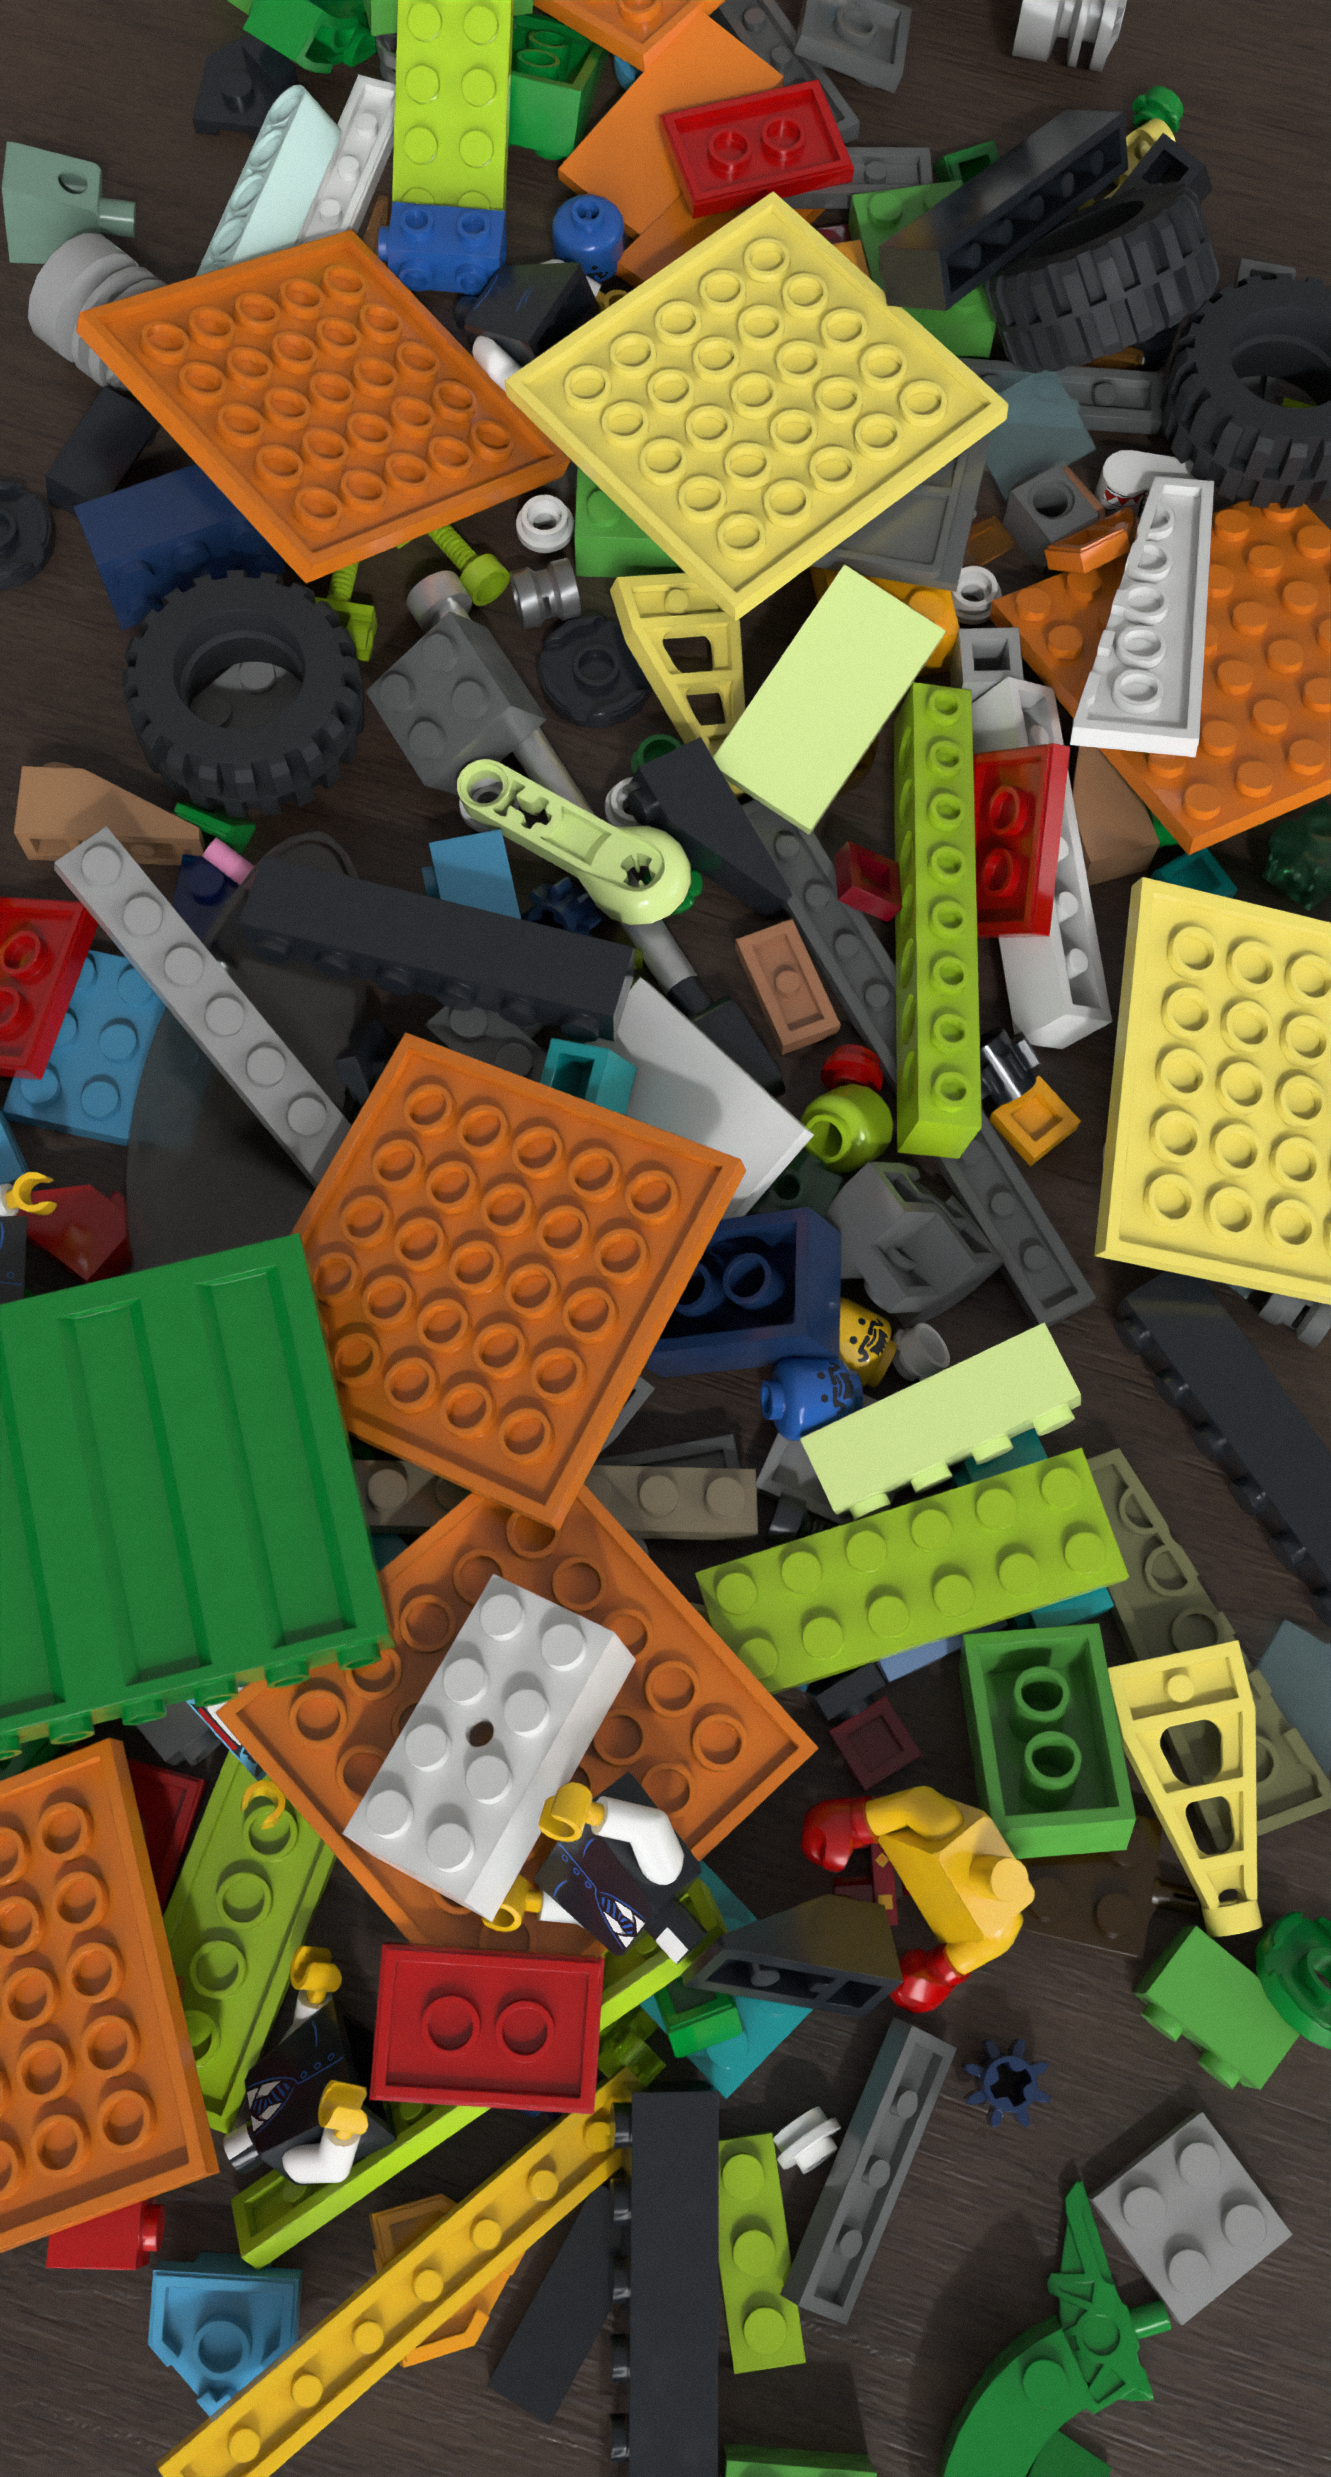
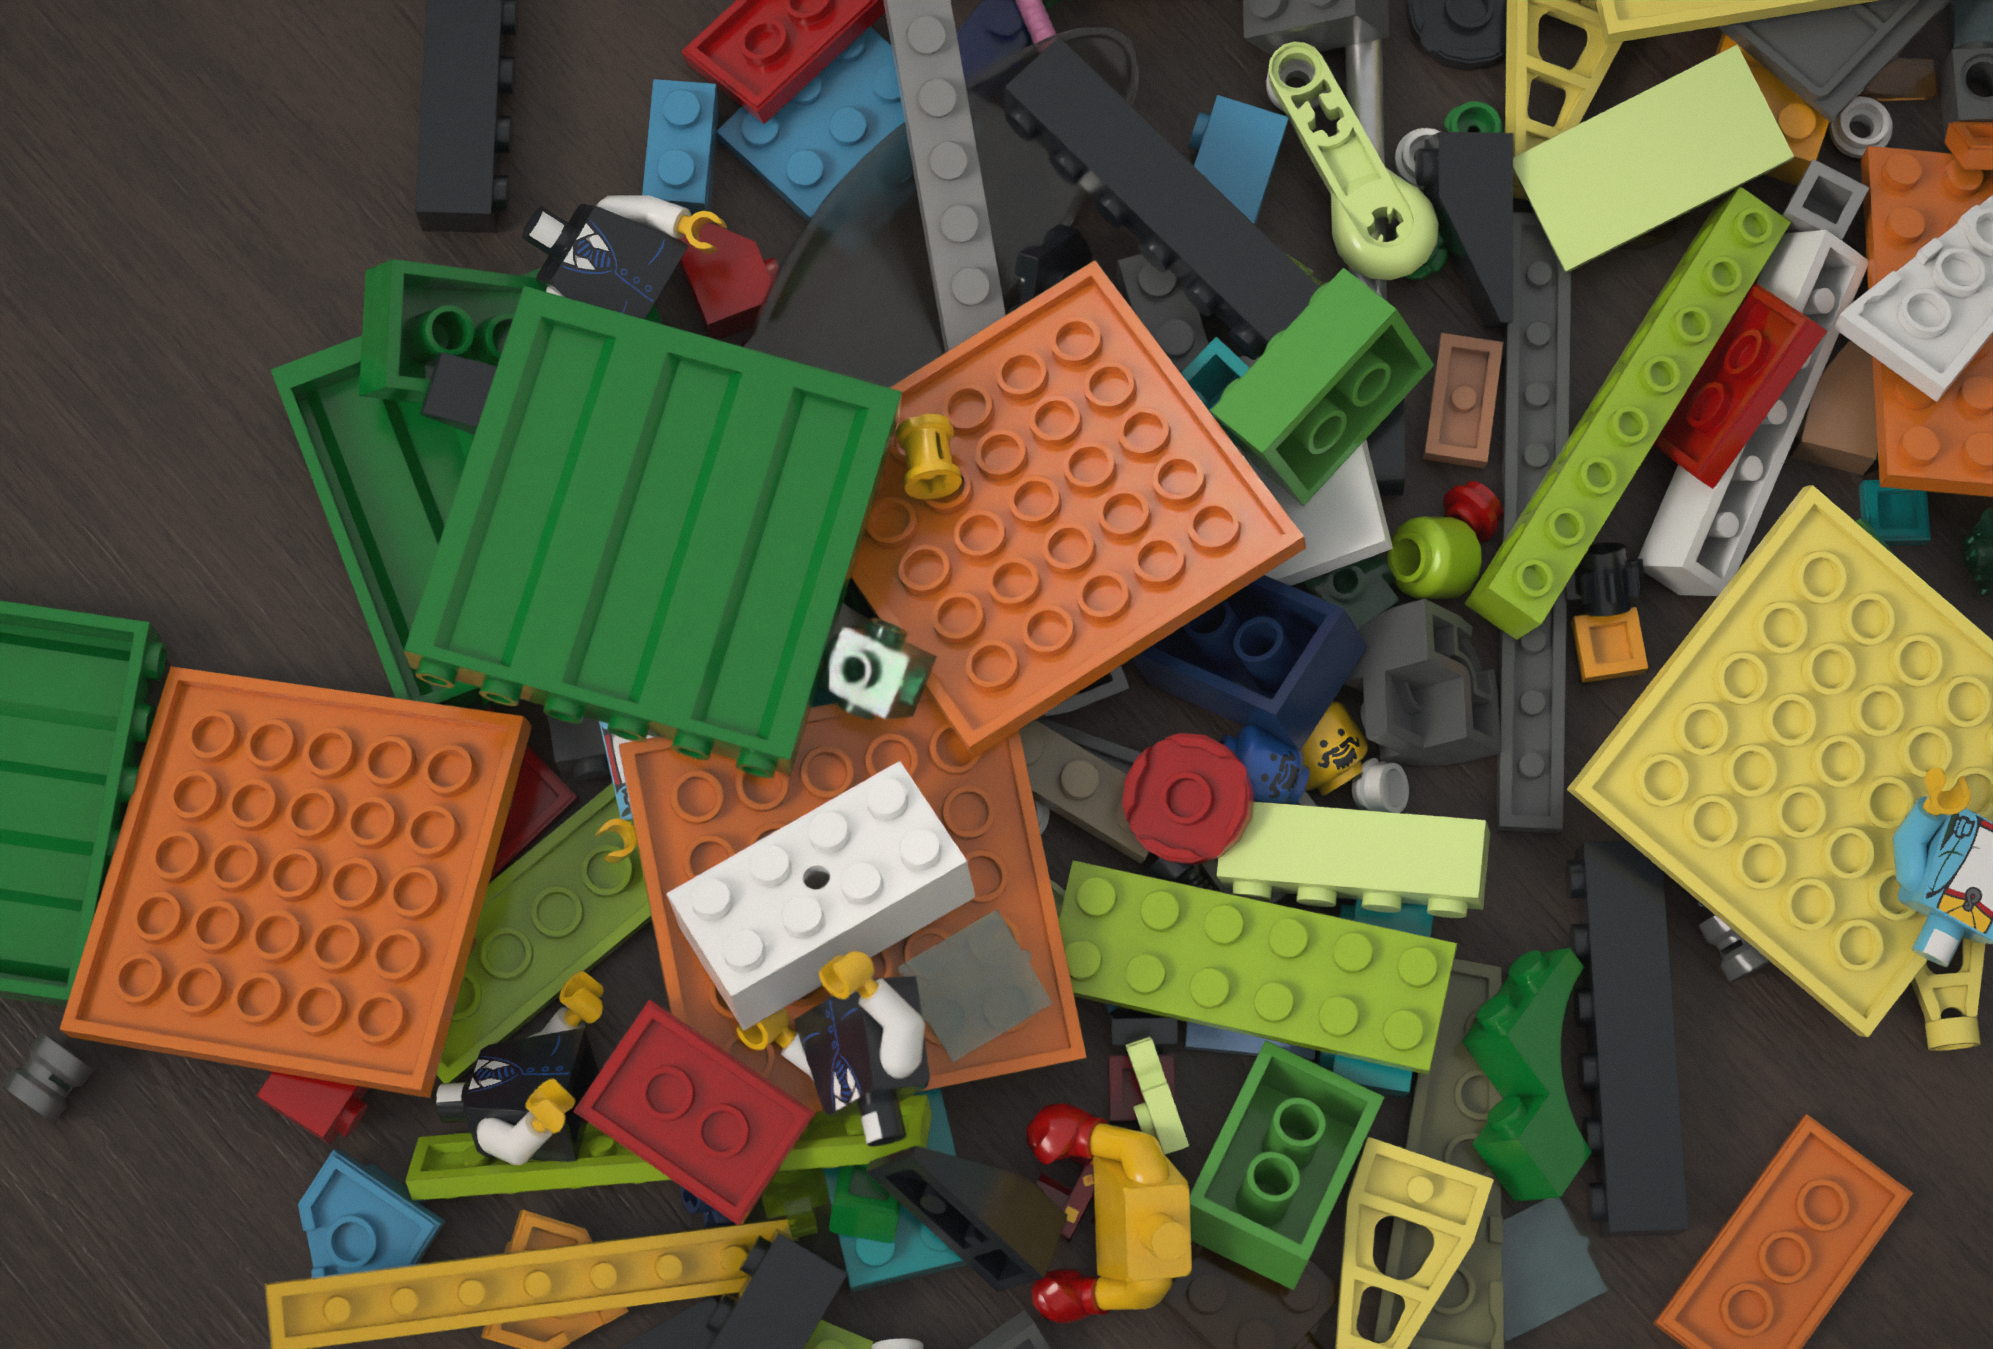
camera: 30 degrees right, 5 degrees up
(356, 1281) = (928, 456): none -> yellow bush
(421, 1502) = (876, 670): none -> clear green brick
(563, 908) = (1298, 224): dark blue gear -> none
(672, 1023) = (1323, 386): none -> bright green brick
(680, 1742) = (976, 985): none -> clear light blue piece
(768, 1456) = (1188, 799): none -> red tile
(868, 881) = (1589, 347): dark red plate -> none
(909, 1759) = (1158, 1112): none -> yellowish green plate
(1179, 1506) = (1517, 1044): none -> green arch

